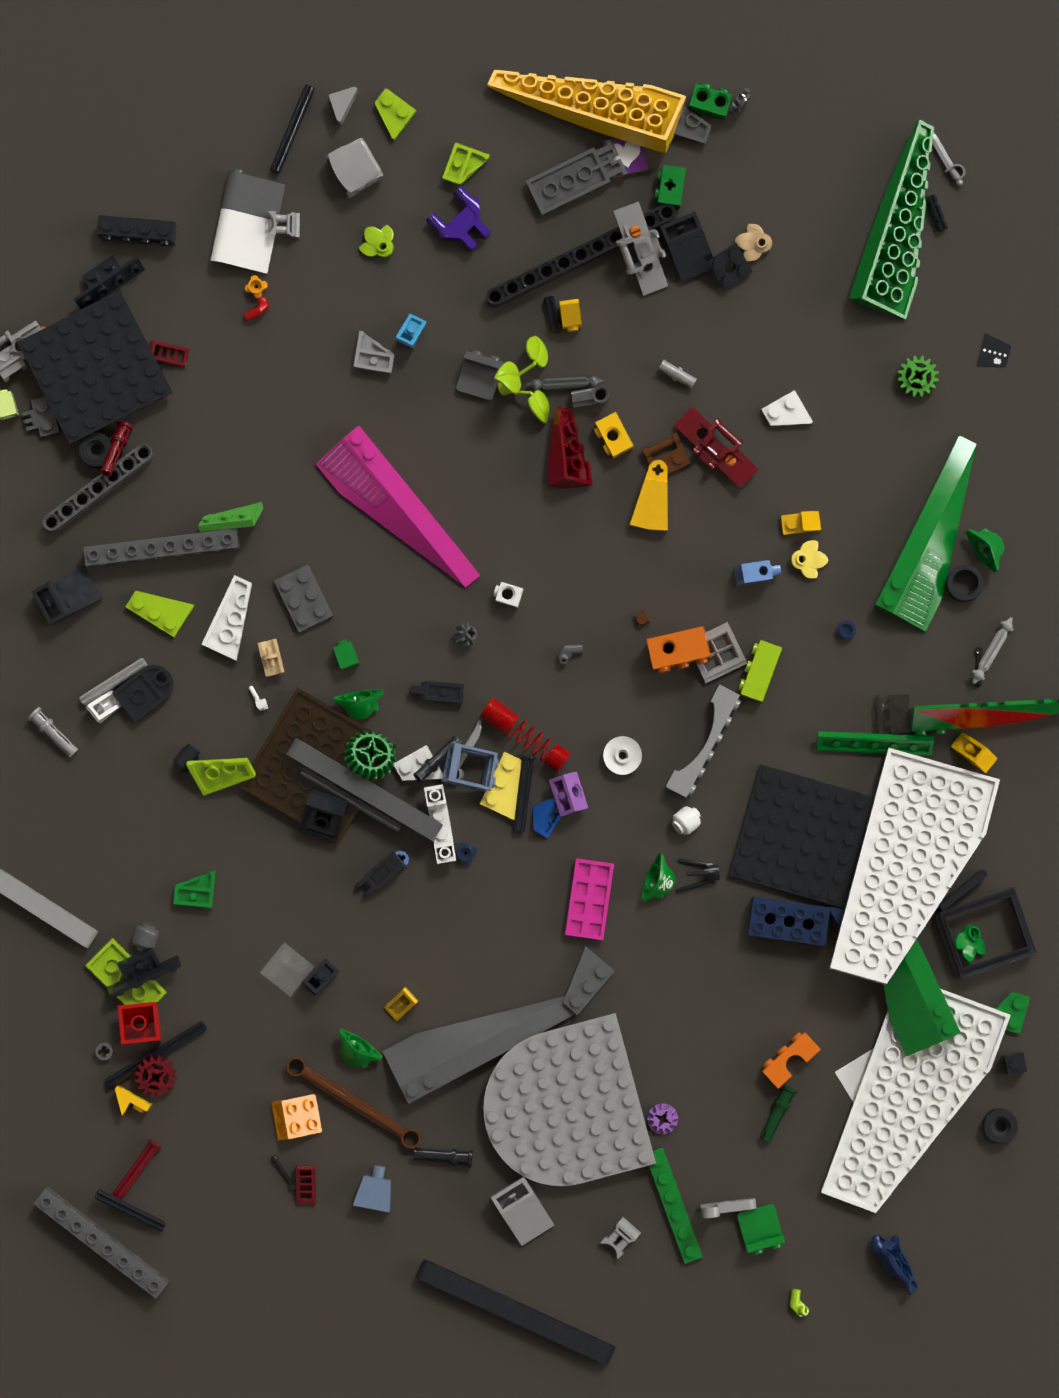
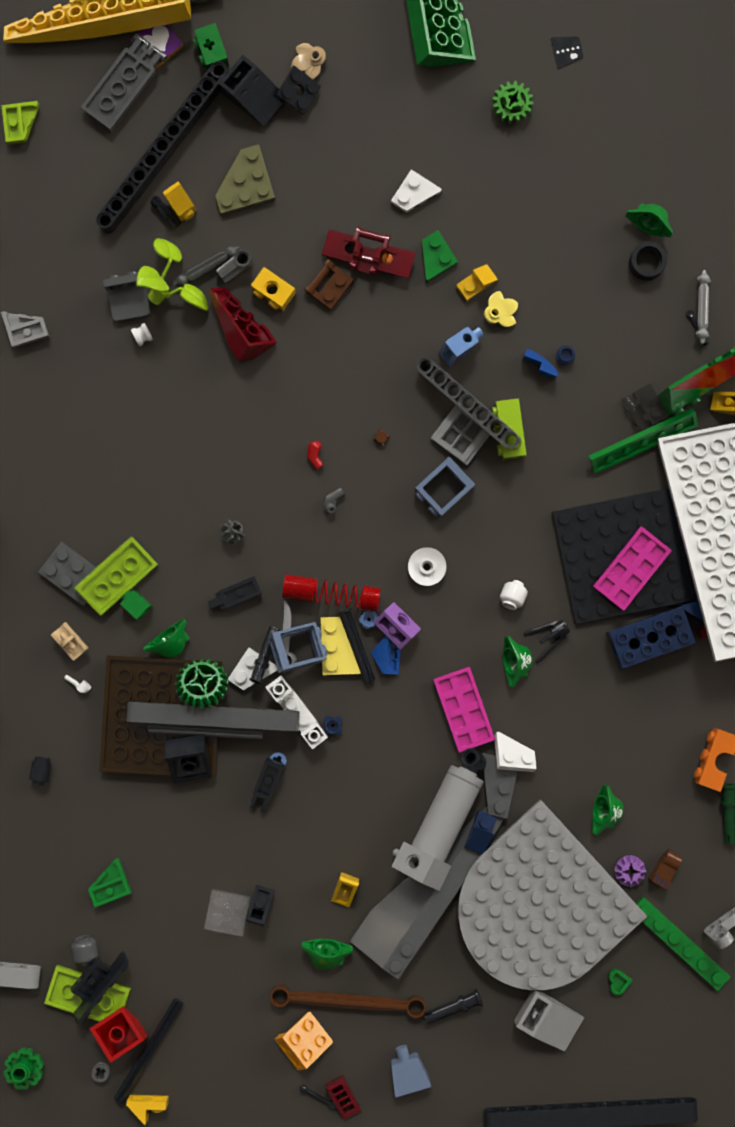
camera: 30 degrees left, 0 degrees up
(36, 1022) = (23, 1068): none -> green plant
(161, 1070) = (153, 1064): dark red gear -> none
(220, 773) = (76, 769): lime wing -> none
(228, 624) = (17, 632): white wing -> none
(341, 620) = (115, 576): none -> lime tile
(375, 487) = (87, 443): dark pink wedge -> none
(411, 331) = (46, 290): dark azure slope -> none
(463, 223) = (45, 172): dark purple connector -> none
(475, 415) = (142, 334): none -> white wheel
(489, 1008) = (442, 823): none -> light grey piece
(514, 601) = (260, 480): white brick -> none
(541, 775) = (368, 614): none -> medium blue plate
(547, 1014) = (480, 832): none -> dark blue slope
(573, 601) = (312, 454): none -> red arm
(602, 1210) = (618, 981): none -> green tile
(612, 962) = (513, 755): none -> white wing
(624, 1229) = (651, 989): light grey piece -> none
(639, 325) = (245, 183): none -> olive plate
(647, 247) = (196, 95): light grey piece -> none
(652, 504) = (337, 329): yellow piece -> none
(656, 707) = (457, 473): none -> sand blue window
(669, 1054) = (606, 810): none -> green hat
(677, 374) = (301, 207): light grey pin -> none
(689, 647) = (436, 438): orange piece -> none
(695, 1132) = (665, 869): none -> reddish brown leg
(723, 703) = (492, 474): light grey arch -> none
(739, 637) = (460, 399): none -> dark grey beam
(777, 480) = (436, 256): none -> green wing
(803, 851) = (632, 568): none -> dark pink plate
(820, 632) = (545, 369): none -> blue slope
(923, 565) = (603, 268): green wedge -> none

